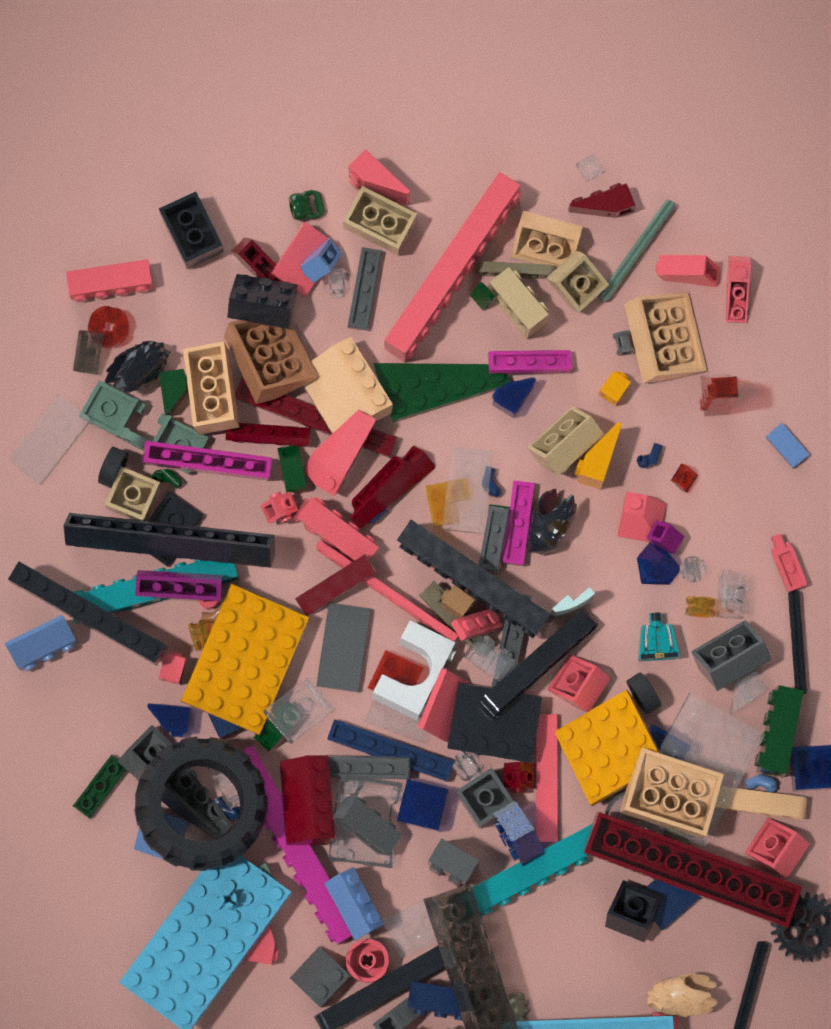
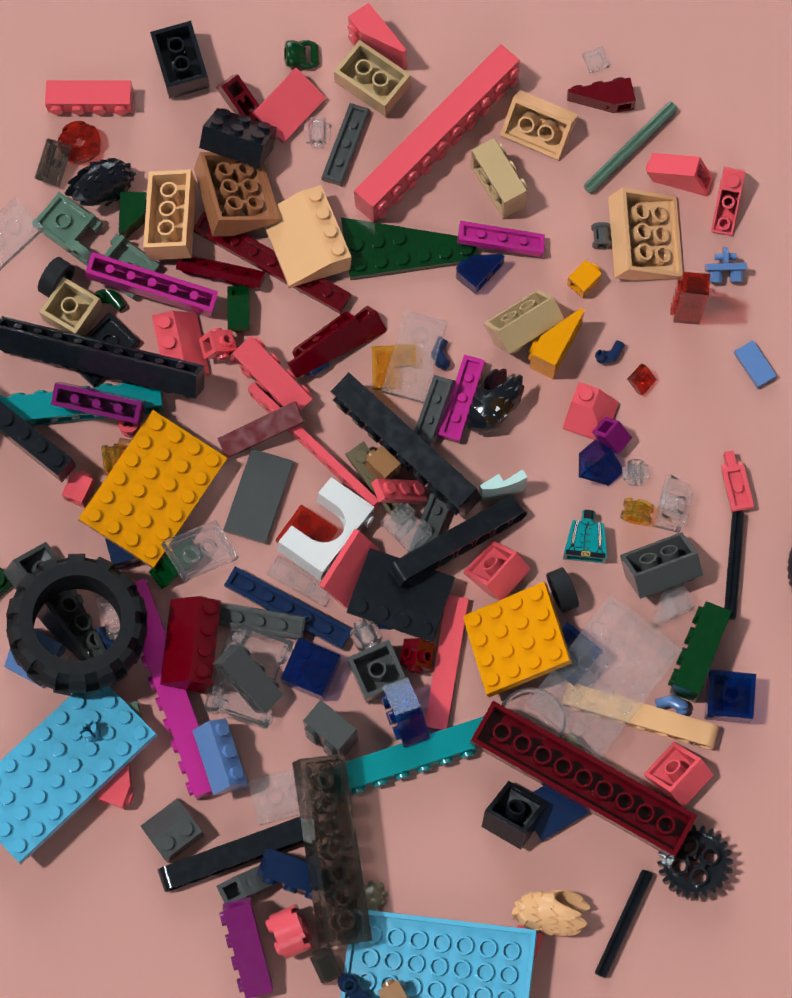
camera: 15 degrees right, 5 degrees down
(172, 718) = (68, 537): clear blue slope -> none
(241, 507) = (179, 336): none -> coral slope
(321, 260) = (305, 107): medium blue slope -> none
(337, 454) = (286, 301): coral wedge -> none
(355, 958) = (210, 819): coral brick -> none
(482, 296) = (463, 167): dark green tile -> none
(531, 271) = (513, 149): dark tan beam -> none
(577, 281) = (563, 166): tan brick -> none
(672, 793) = (573, 694): light nougat slope -> none
(736, 359) = (736, 269): none -> medium blue hips

